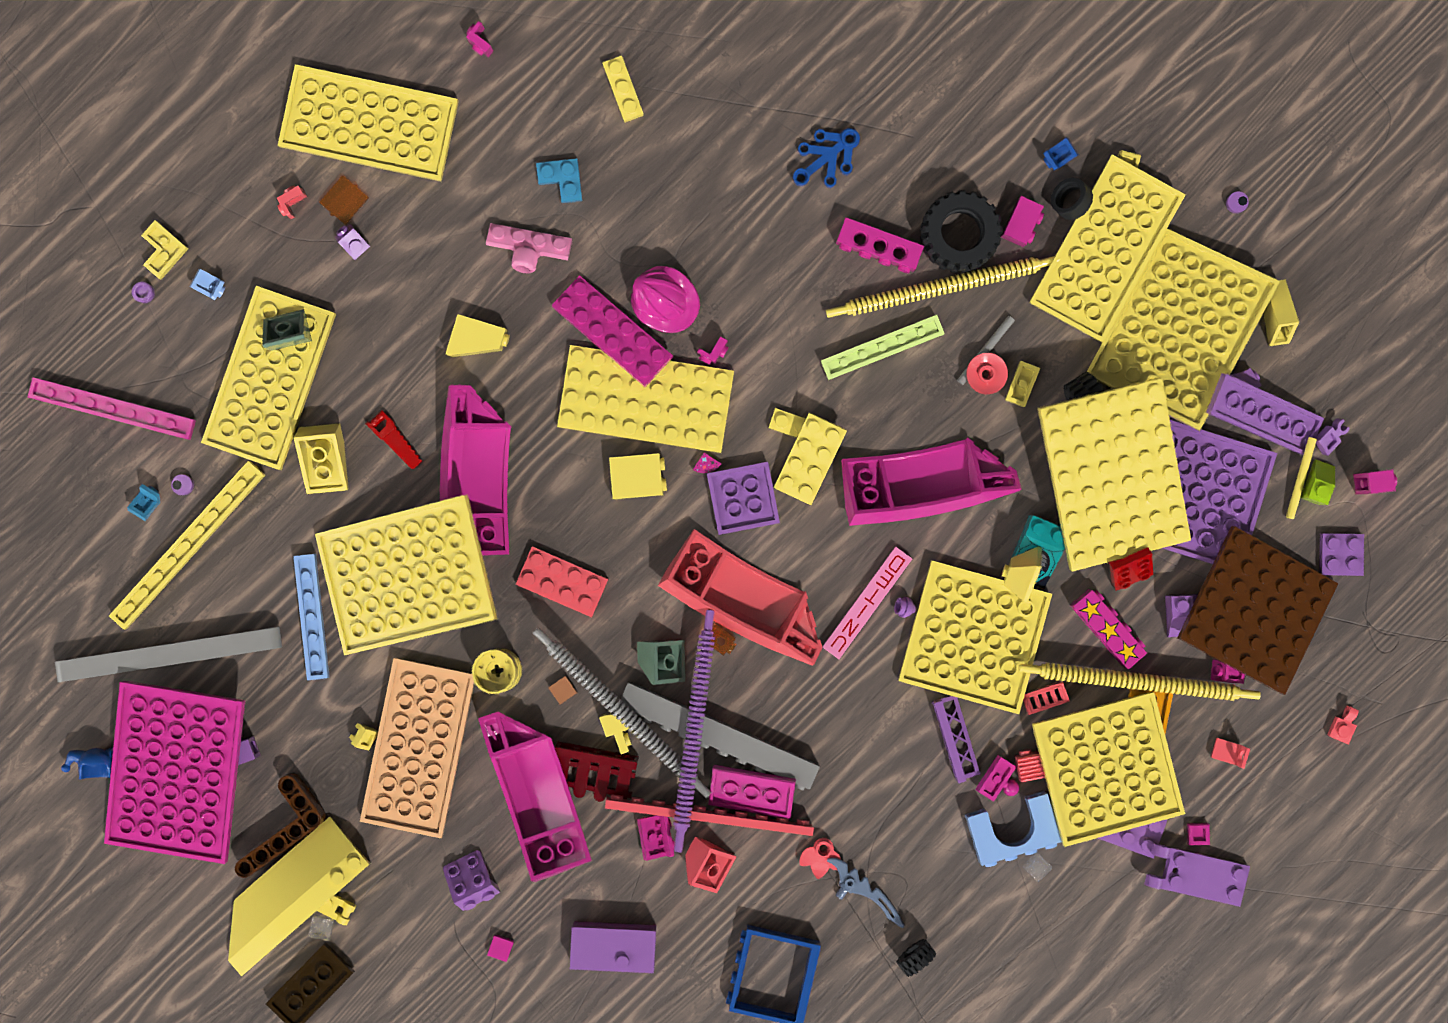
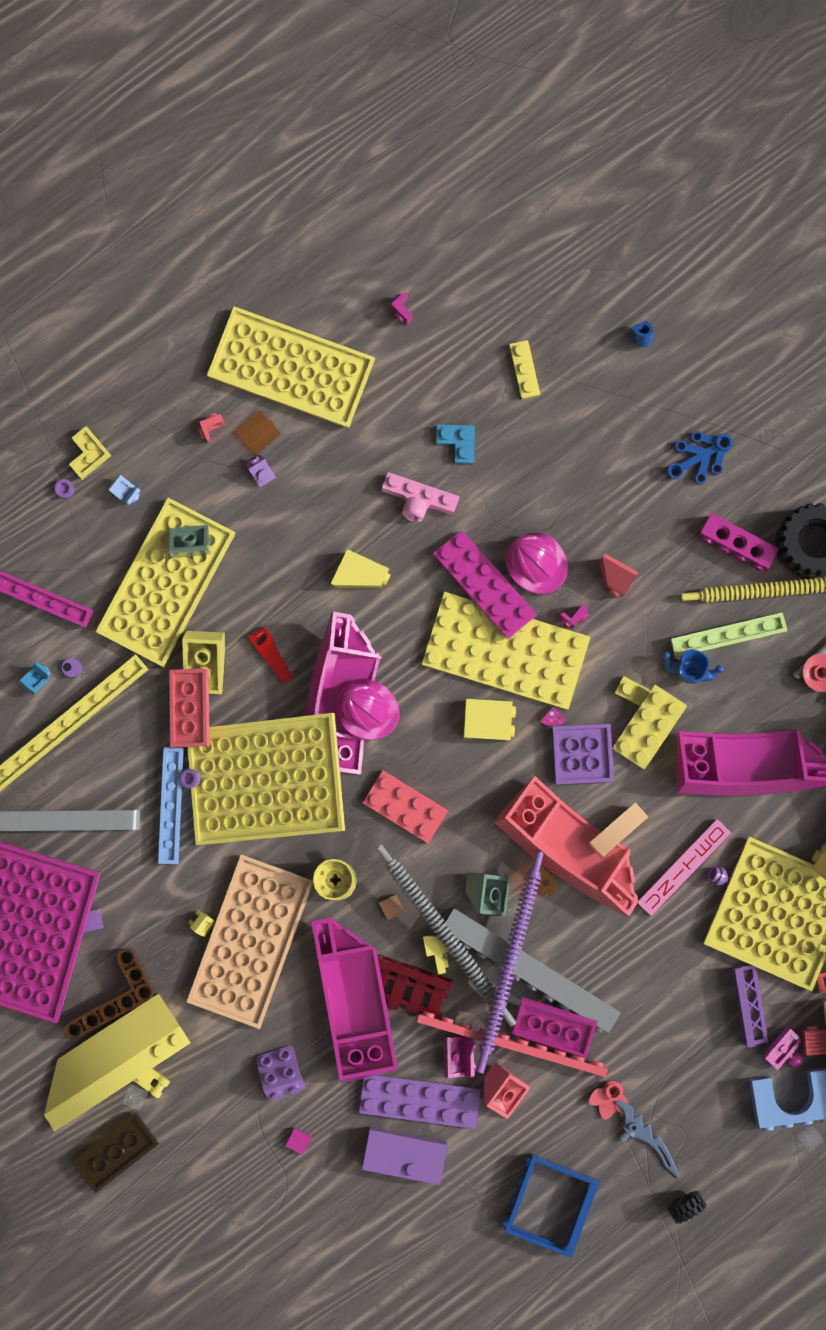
camera: 10 degrees right, 5 degrees down
(313, 510) = (189, 708): none -> coral plate
(326, 585) = (189, 778): none -> medium lavender tile
(505, 484) = (367, 709): none -> dark pink piece
(622, 888) = (420, 1101): none -> medium lavender plate
(745, 31) = (642, 334): none -> blue plate
(752, 301) = (616, 575): none -> coral slope
(791, 574) = (618, 830): none -> light nougat slope
(846, 388) = (691, 667): none -> blue piece

